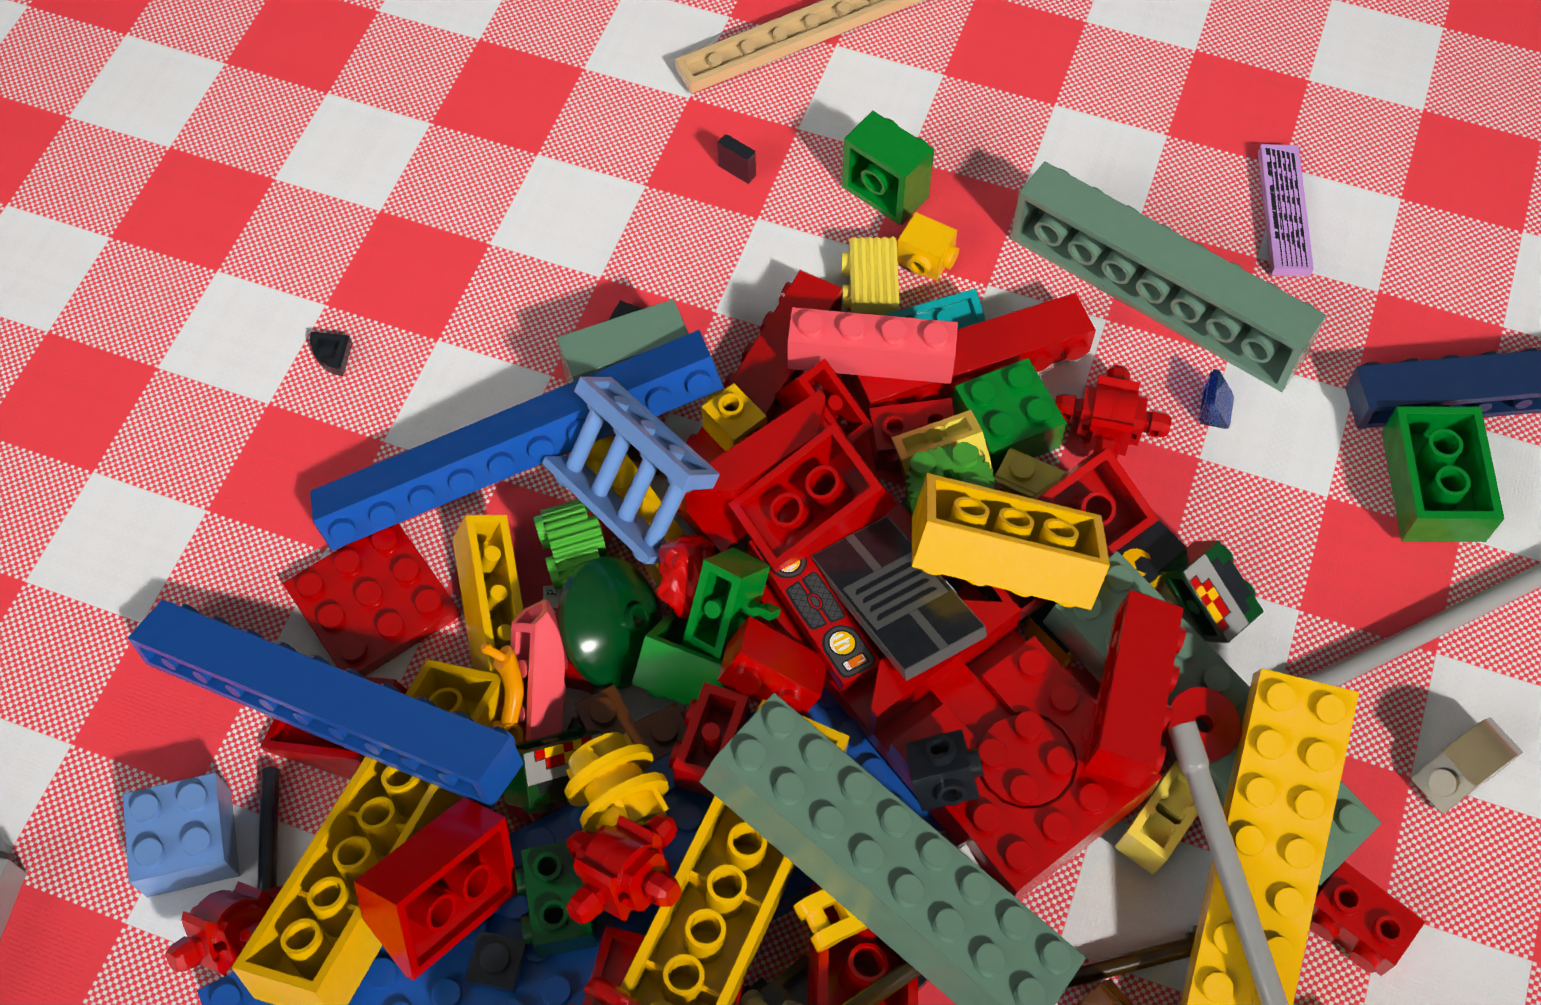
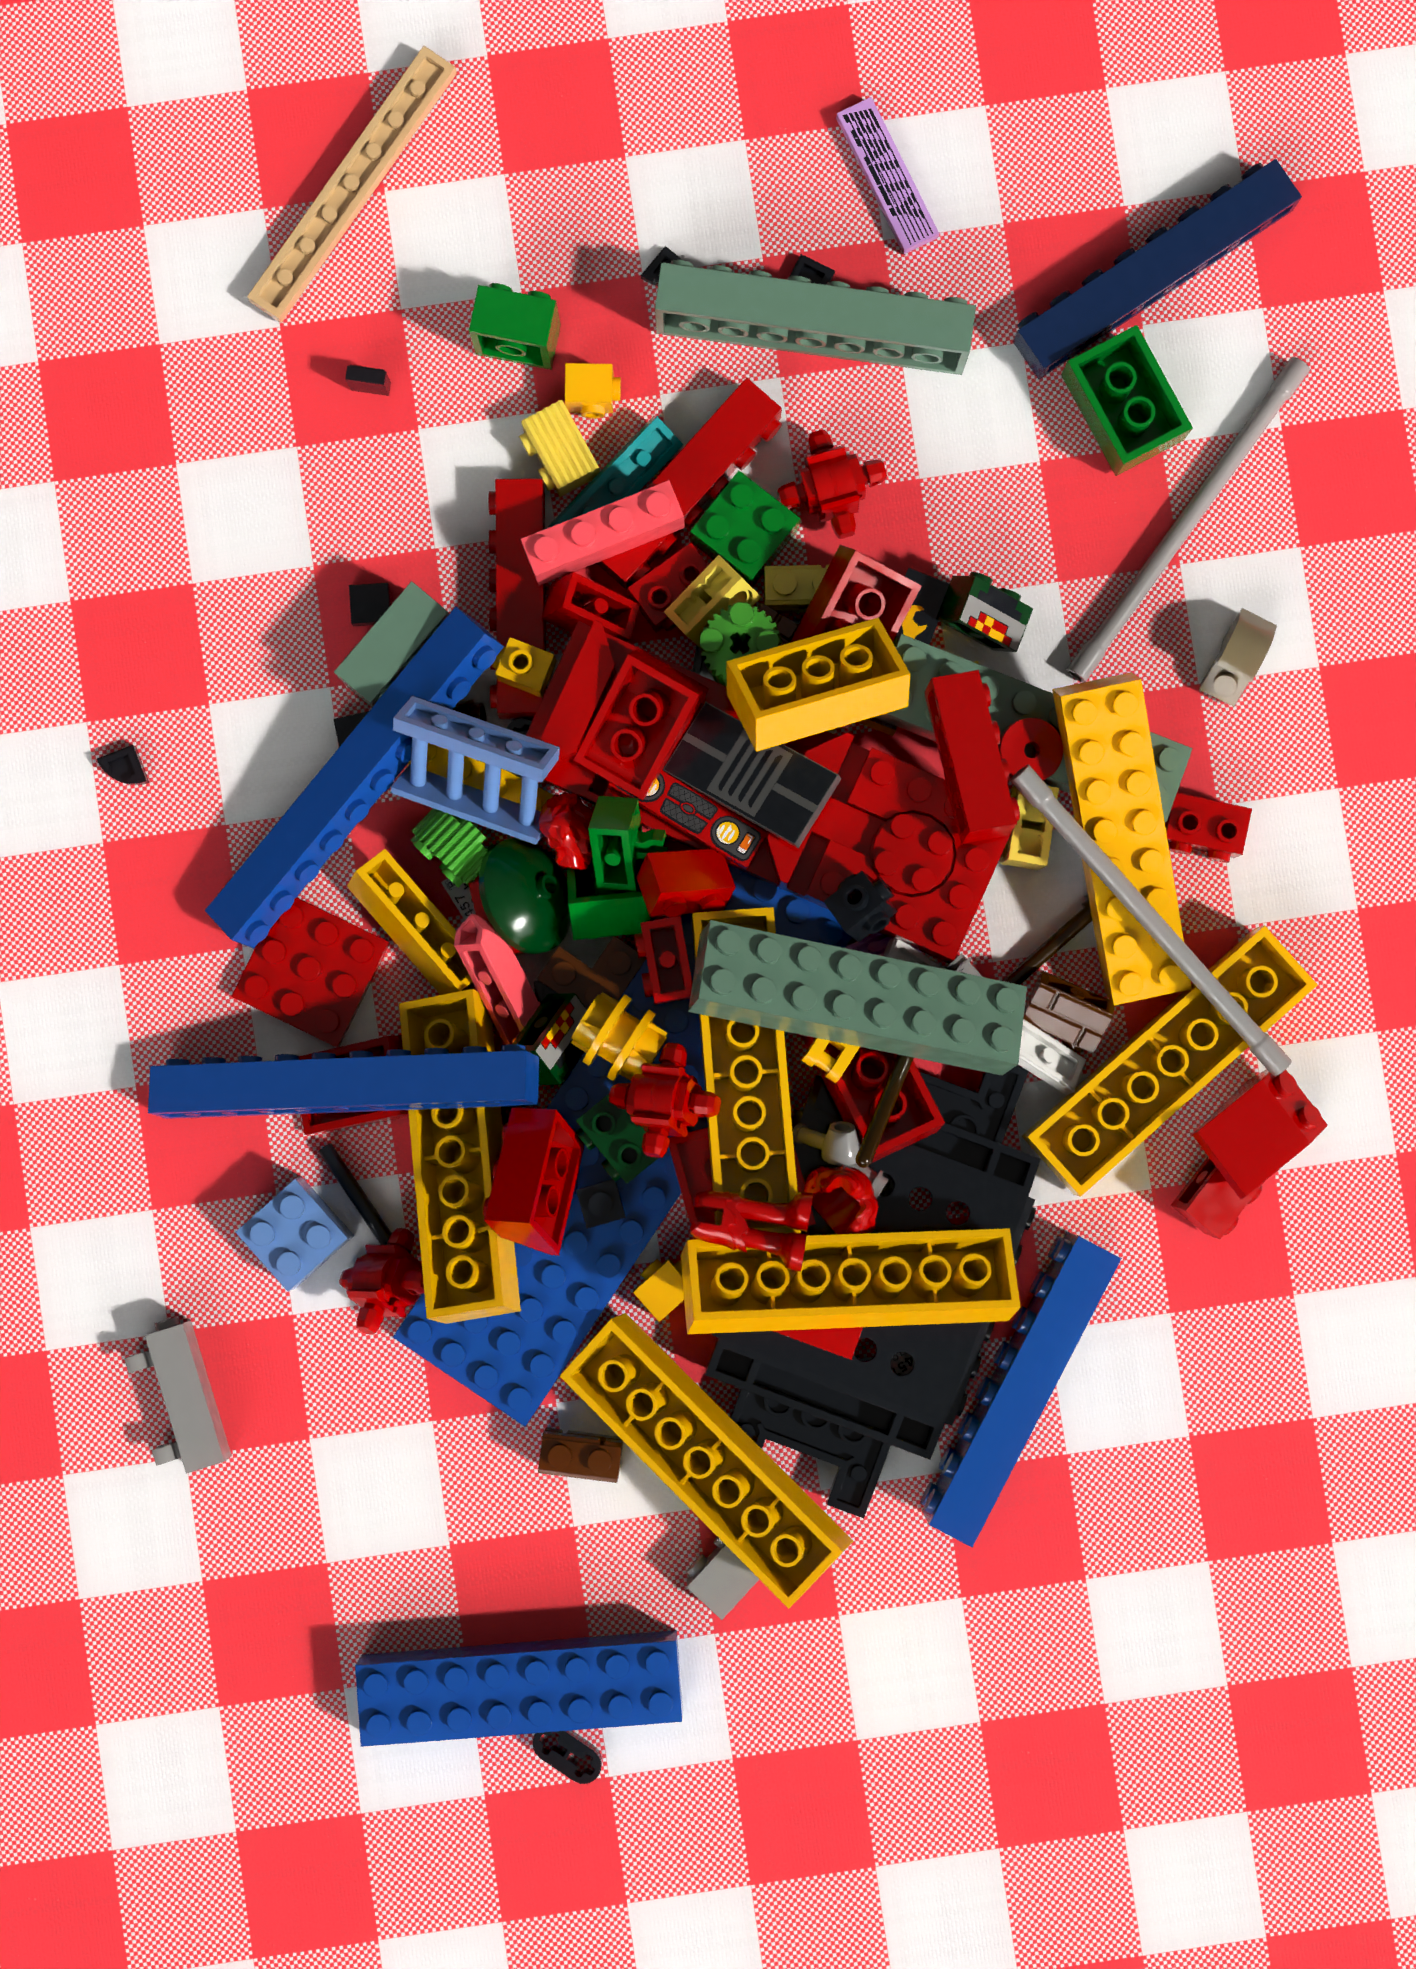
camera: 30 degrees left, 25 degrees up
(508, 667) = (498, 1029): light orange piece -> none
(1216, 402) = (912, 419): clear blue slope -> none

